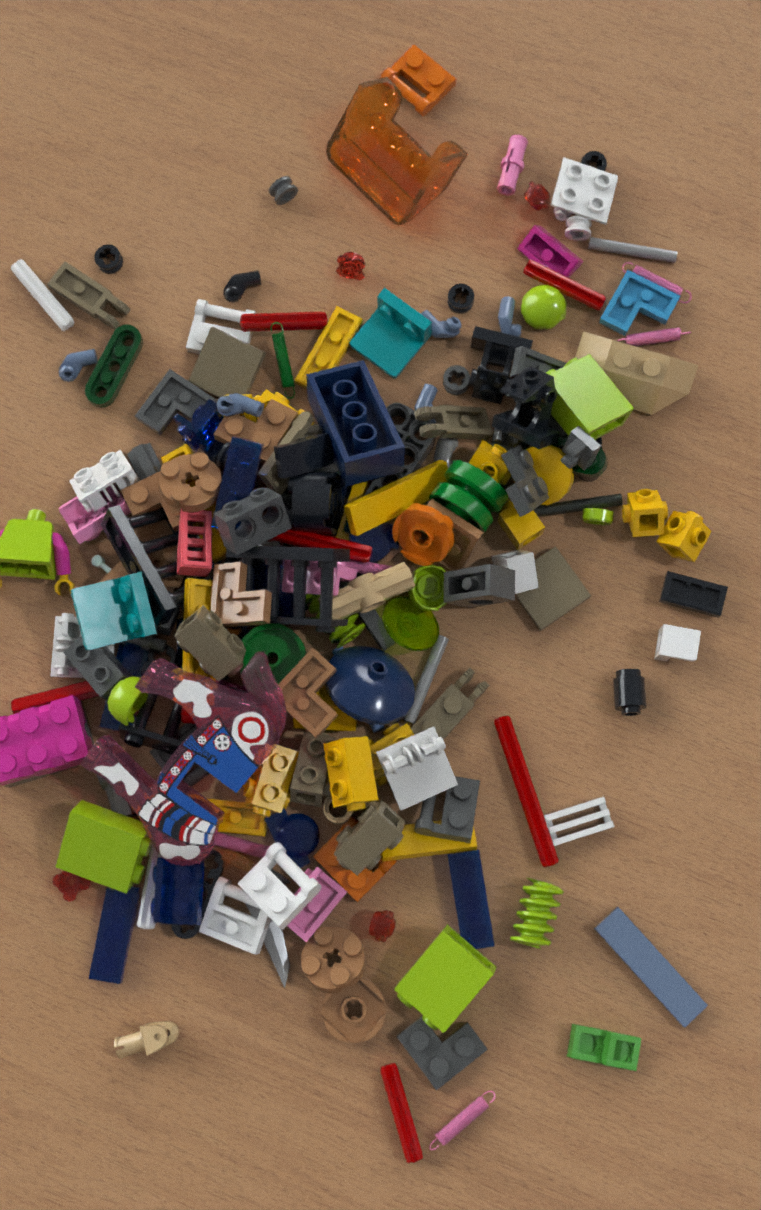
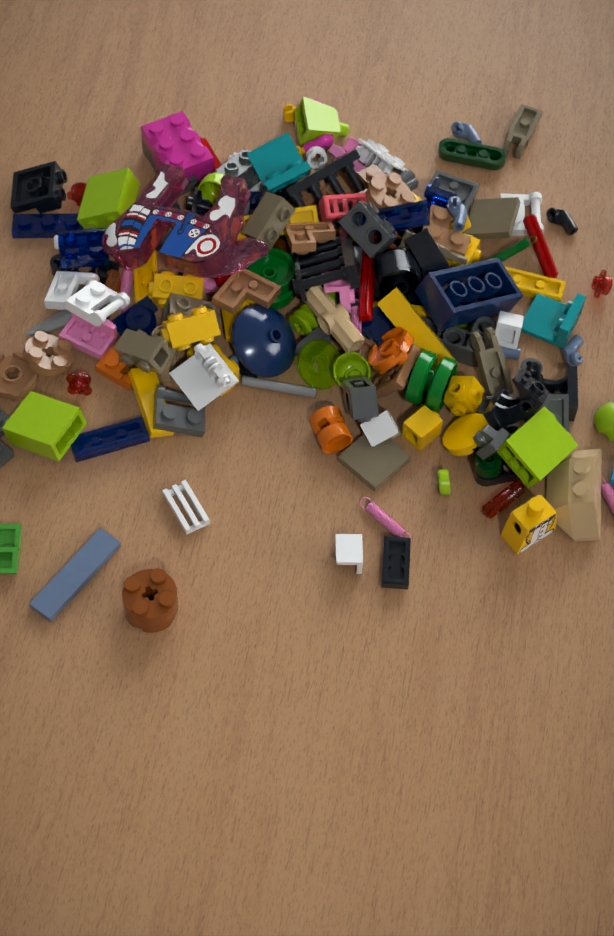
camera: 70 degrees right, 20 degrees down
(42, 295) = (513, 106): white axle -> none
(55, 938) = (38, 188): none -> black plate
(80, 561) = (311, 153): none -> white bush
(115, 265) = (555, 144): black bush -> none
(402, 388) = (508, 329): none -> white panel
(445, 449) = (468, 369): light grey arm -> none
(450, 707) = (258, 405): dark tan hinge -> none
(463, 289) = (601, 356): black bush -> none
(505, 317) = (592, 394): sand blue arm -> none
(518, 633) = (330, 429): none -> orange wheel
(526, 791) = (203, 465): red axle -> none
(529, 489) = (452, 418): dark grey plate -> none
(537, 914) = (105, 482): lime piece -> none
(579, 505) = (448, 464): pearl dark grey bar -> none
(627, 456) = (503, 499): none -> clear red axle
(629, 692) = (300, 525): black brick -> none
(632, 594) = (381, 516): none -> bright pink piece
(645, 513) = (455, 511): yellow brick -> none
(671, 433) = (534, 521): none -> yellow torso
(684, 535) = (444, 544): yellow brick -> none
(725, 887) = (150, 600): none -> dark orange brick

